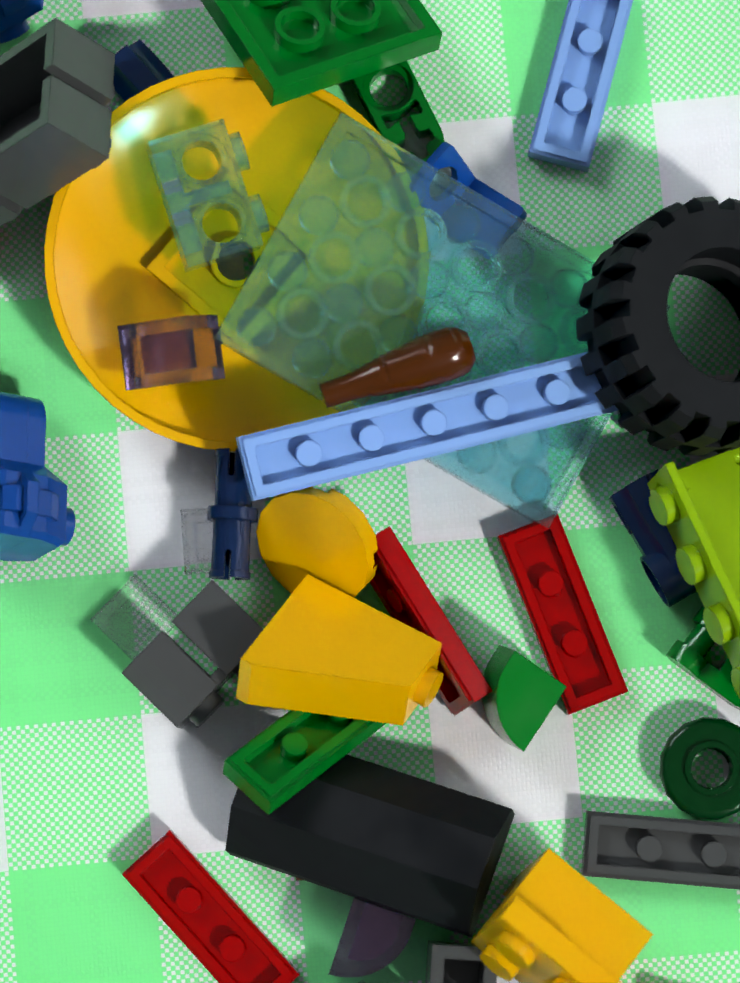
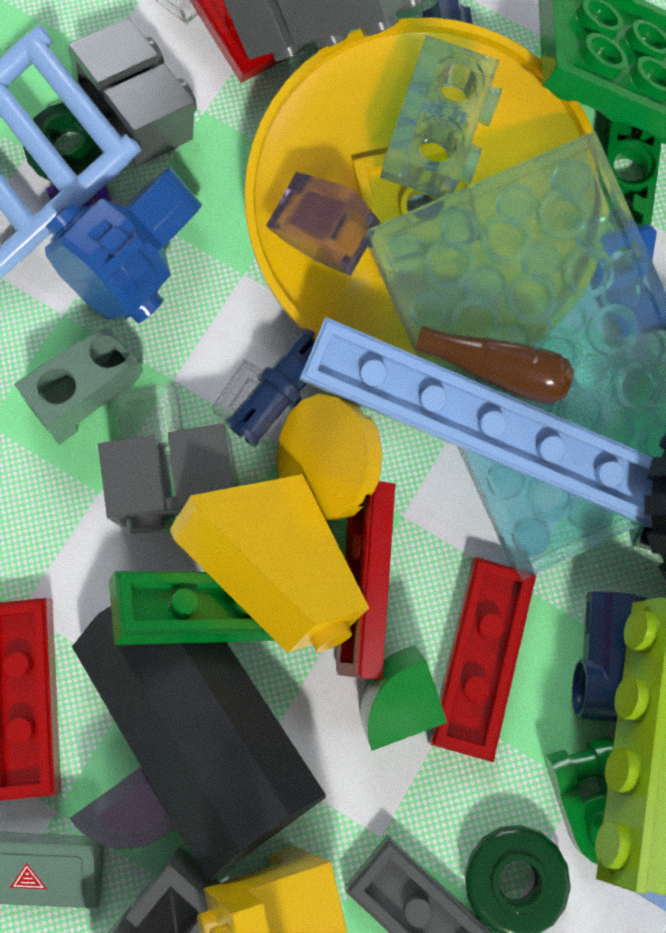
camera: 30 degrees right, 5 degrees down
(57, 634) = (78, 382): none -> sand green leg

